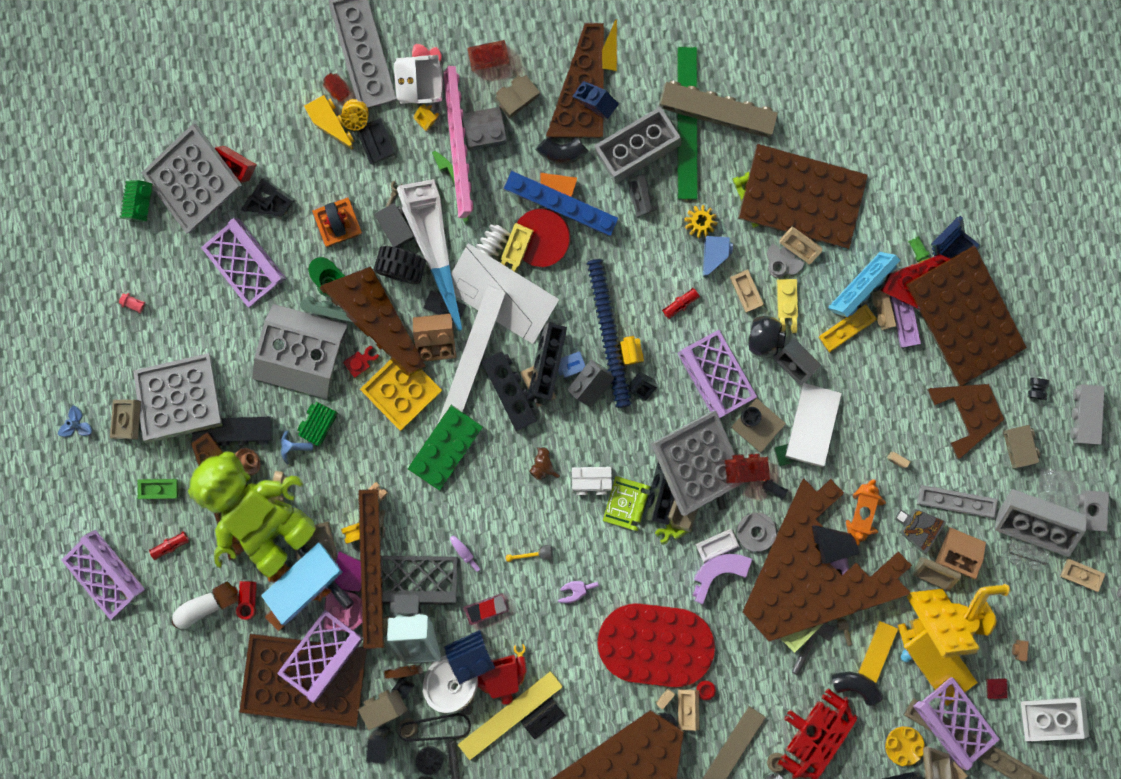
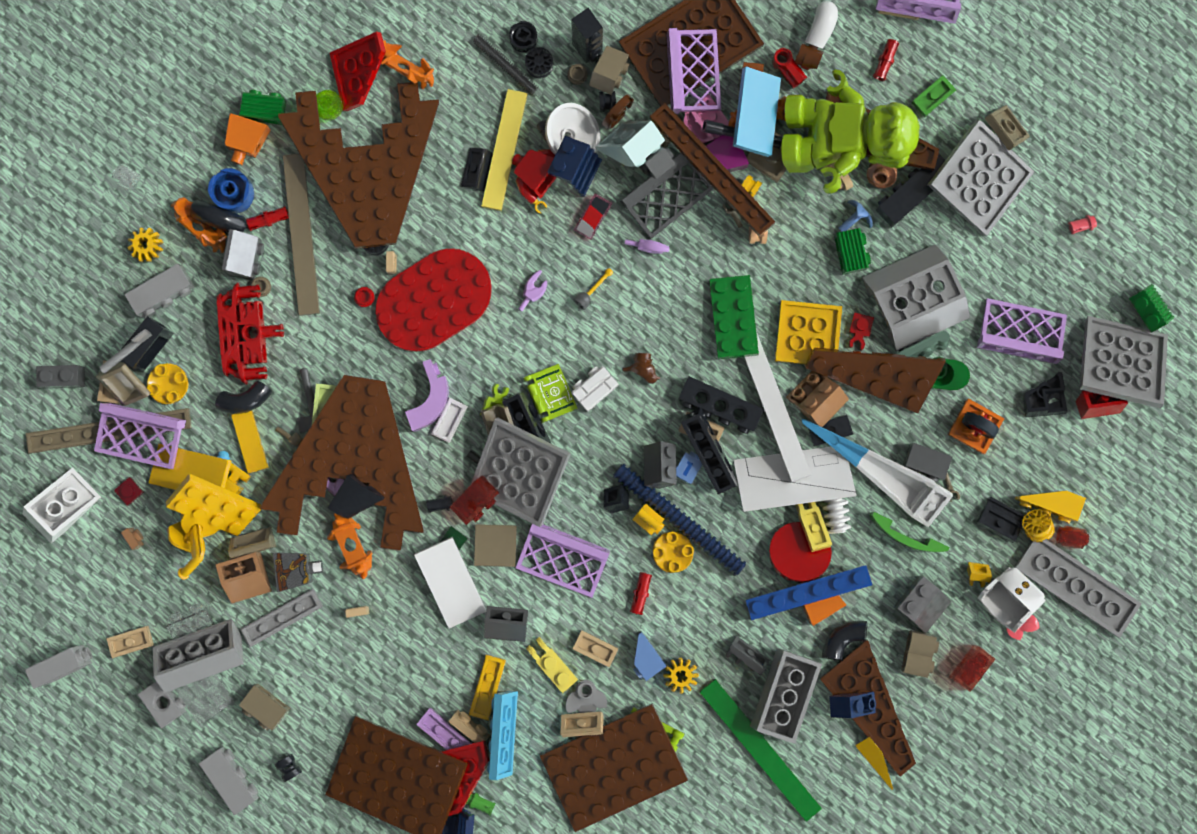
camera: 140 degrees right, 0 degrees up
(72, 423) = (1045, 86): medium blue plant -> none
(400, 264) = (896, 432): black tyre -> none
(435, 738) = (562, 98): black piece -> none
(457, 135) = (941, 579): bright pink plate -> none
(633, 313) = (673, 552): none -> yellow dish
(688, 709) = (365, 269): tan plate -> none
(717, 109) = (744, 782): dark tan brick -> none
(754, 416) = (506, 543): black wheel -> none
(766, 336) = (548, 622): black wheel -> none
(767, 531) = (418, 465): light grey plate -> none
(977, 410) = (326, 708): reddish brown wing -> none

